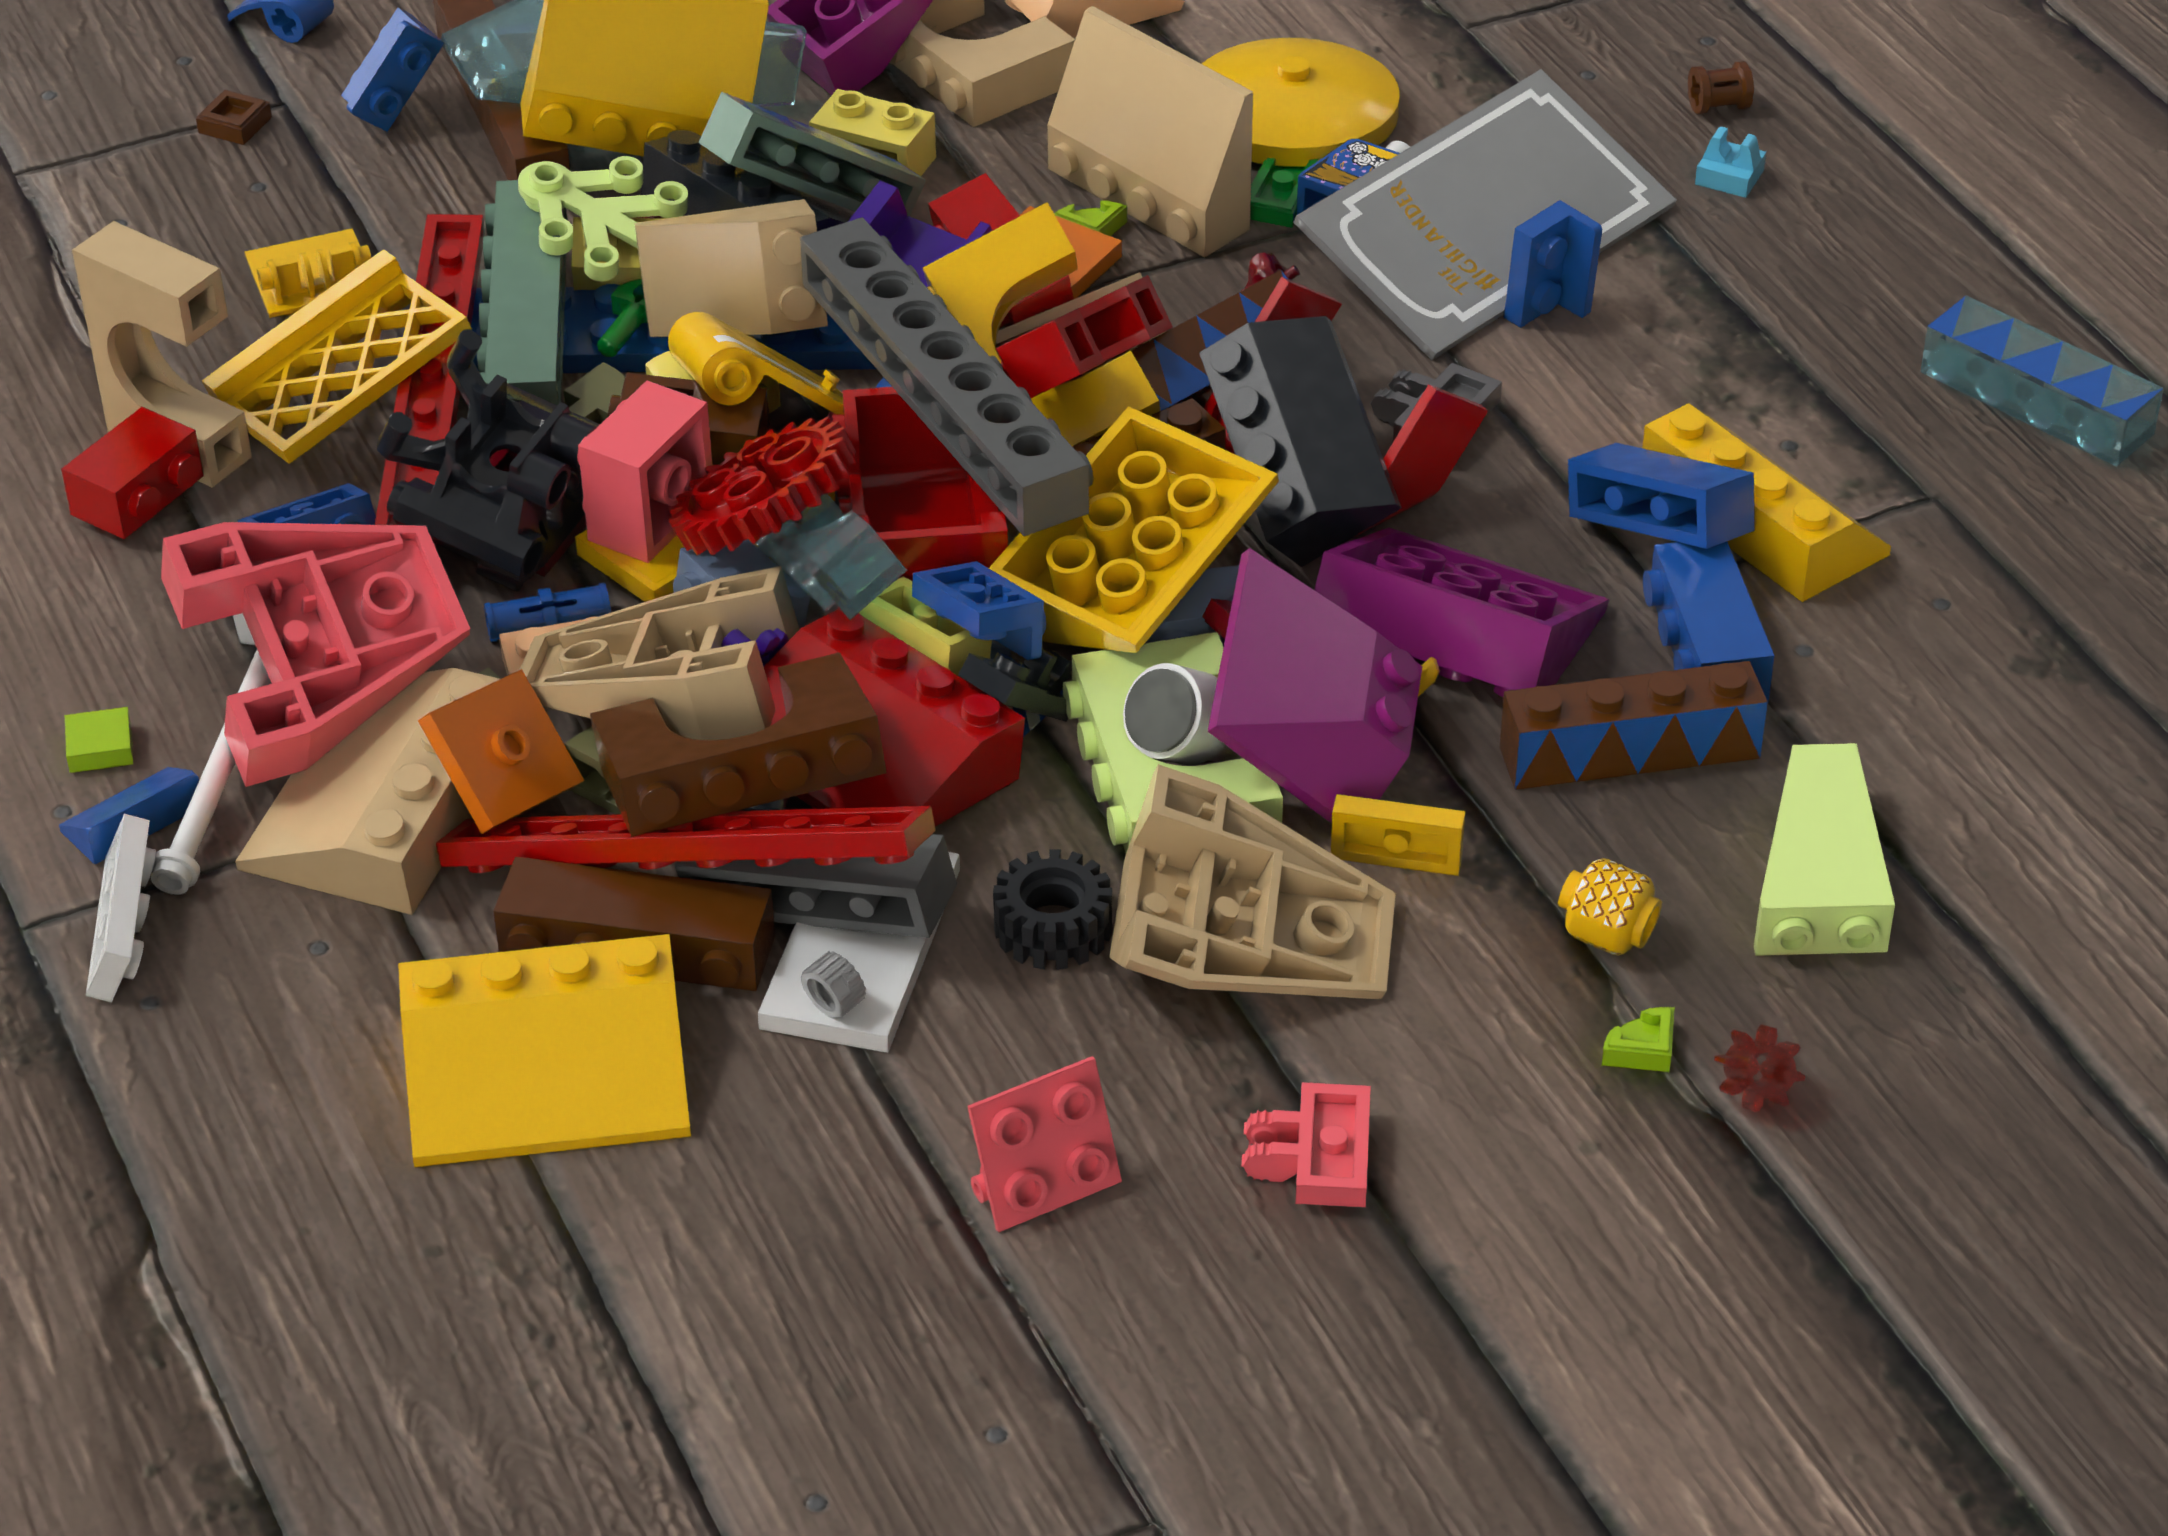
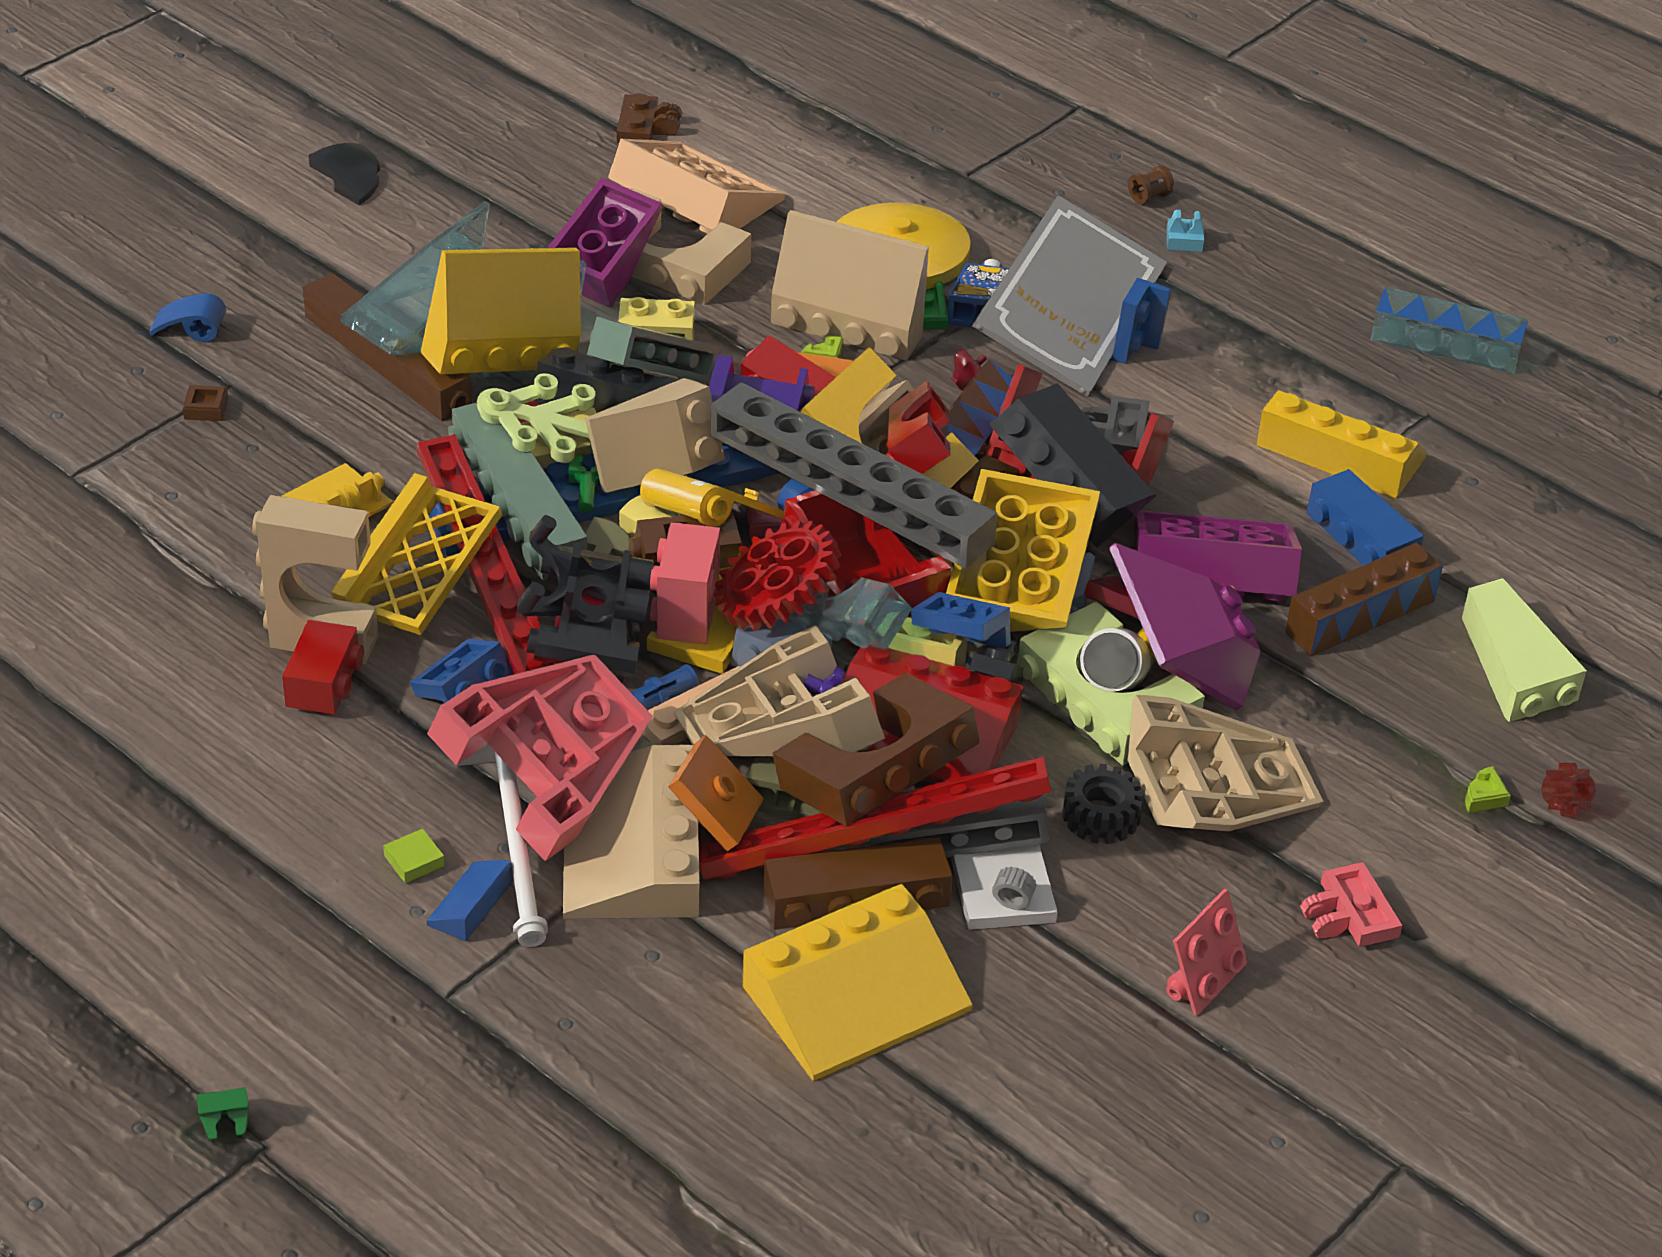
camera: 25 degrees left, 0 degrees up
(121, 909) = (515, 966): white plate -> none
(391, 70) = (309, 346): blue bracket -> none
(1397, 834) = (1275, 701): yellow plate -> none
(1610, 906) = (1425, 714): yellow head -> none
(1661, 495) = (1297, 451): blue brick -> none

